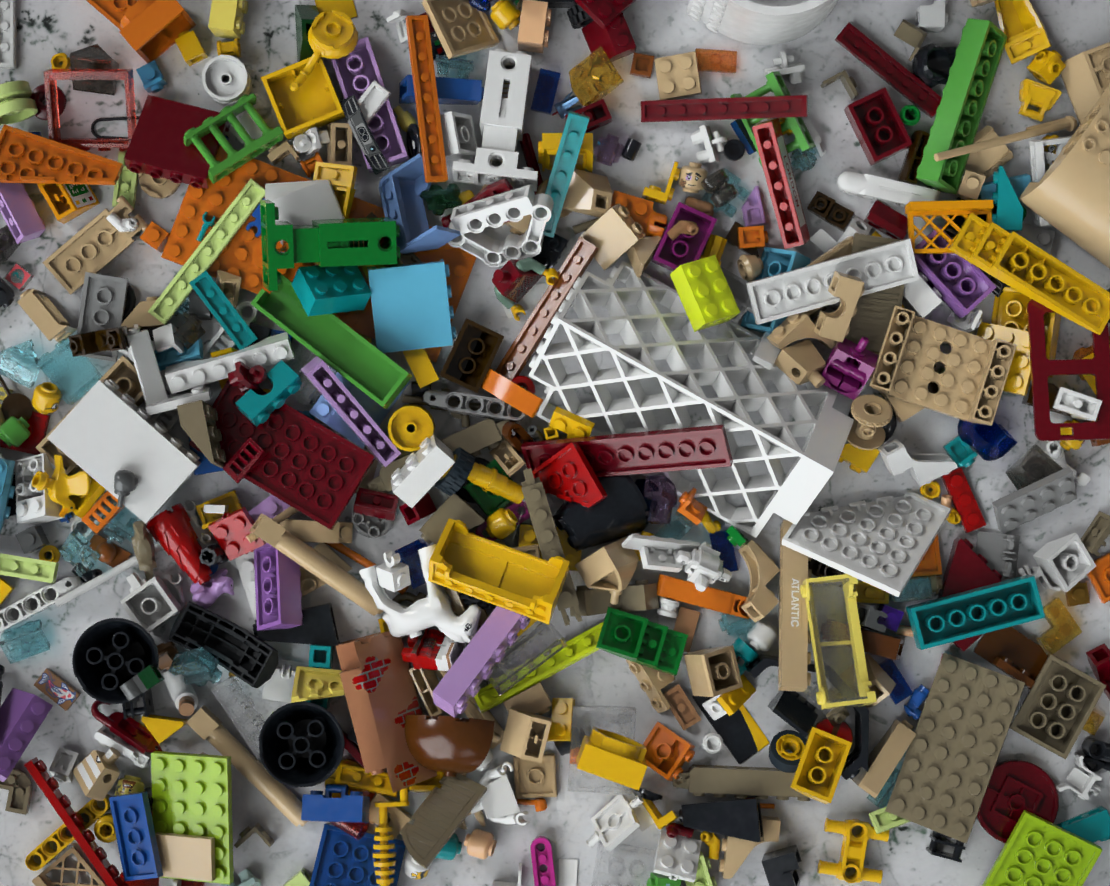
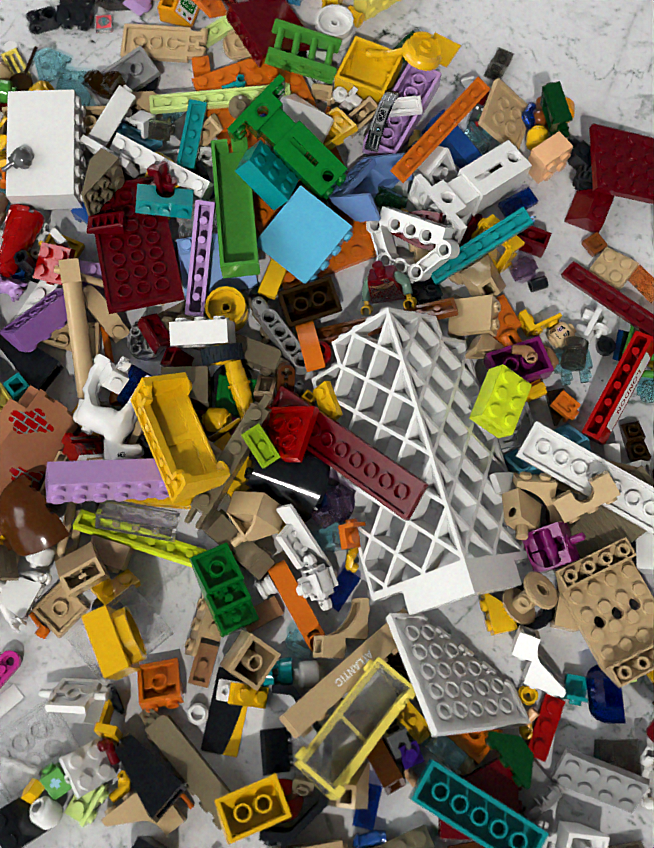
camera: 45 degrees right, 15 degrees down
(45, 315) = (92, 46): tan window -> none
(122, 225) = (189, 43): white arm -> none
(235, 243) = (238, 105): none -> dark tan brick
(563, 514) = (260, 445): none -> lime plate
(594, 77) = (558, 220): clear yellow slope -> none
(736, 537) = (359, 585): green plate -> none
(750, 267) = (548, 419): tan cone -> none
(753, 209) = (583, 391): lavender tile -> none
(785, 741) = (243, 764): wheel -> none
(960, 545) = (513, 755): none -> dark green slope

